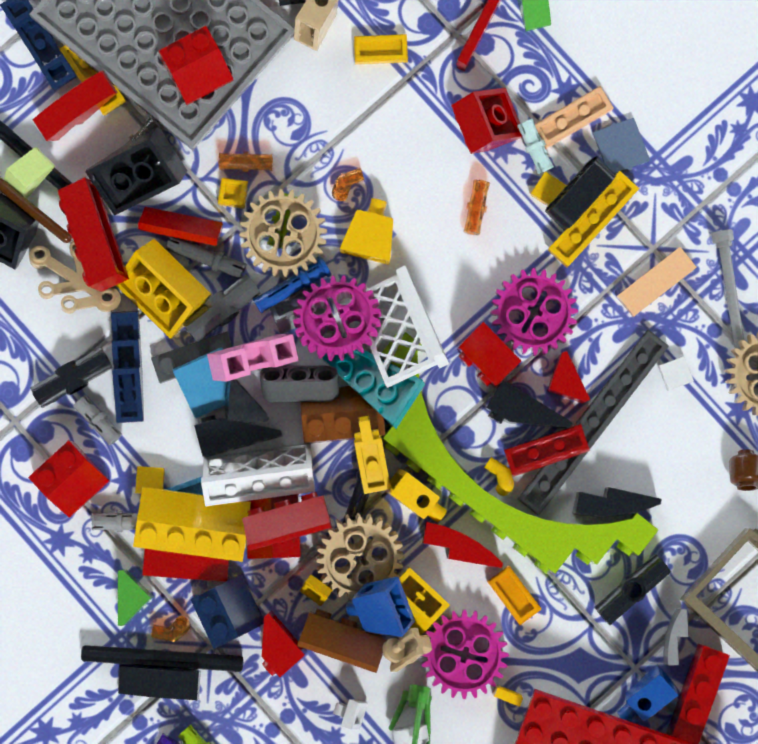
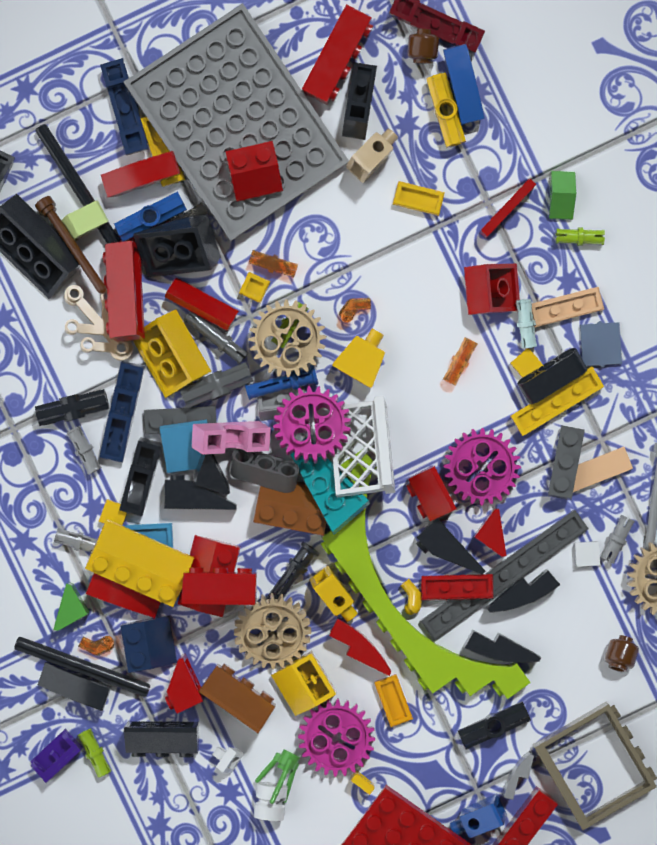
camera: 20 degrees right, 5 degrees up
(69, 478) = (46, 493): red slope -> none
(112, 136) = (164, 208): none -> blue piece
(167, 430) = (141, 476): none -> black slope
(254, 484) = (207, 547): white fence -> none
(272, 712) = (161, 738): none -> black slope
(315, 590) = (227, 648): yellow tile -> none
(371, 458) = (306, 552): yellow hinge -> none
(382, 607) = (279, 680): blue torso -> none
(406, 649) = (289, 719): tan hips -> none
(564, 39) = (580, 236): none -> lime pin
(621, 434) = (524, 593): none -> black slope
(623, 281) = (566, 462): none -> dark grey plate
(703, 348) = (617, 539): none -> light grey pin

